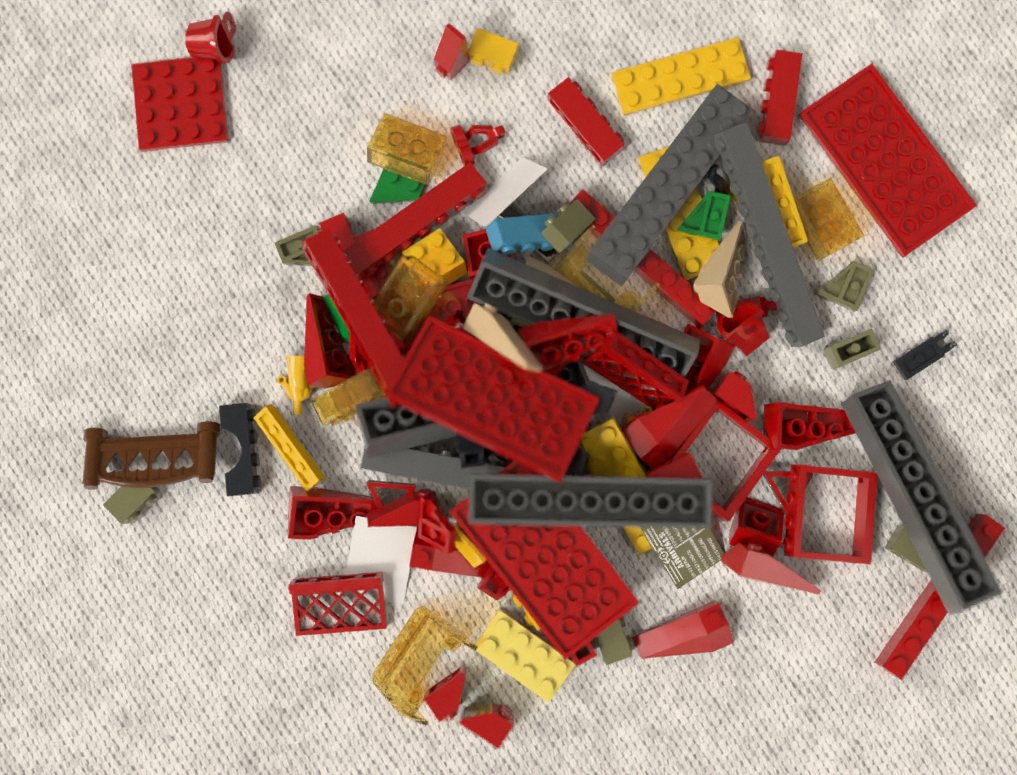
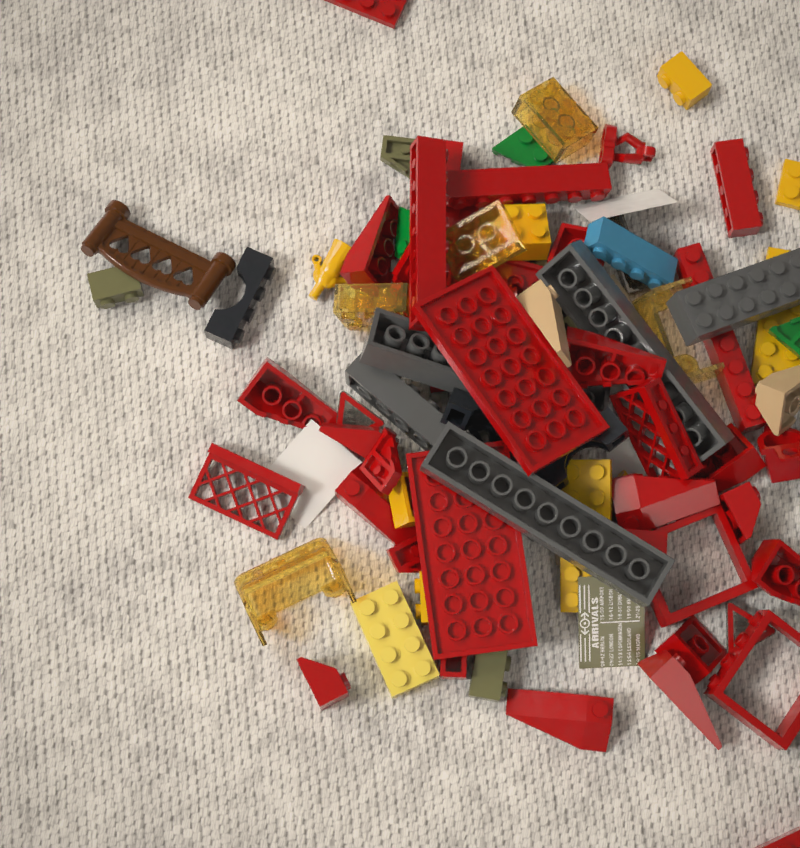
camera: 25 degrees right, 10 degrees down
(289, 447) = (288, 321): yellow fence -> none
(446, 695) = (300, 632): red slope -> none
(451, 53) = (645, 58): slope -> none
(568, 225) = (666, 263): olive brick -> none

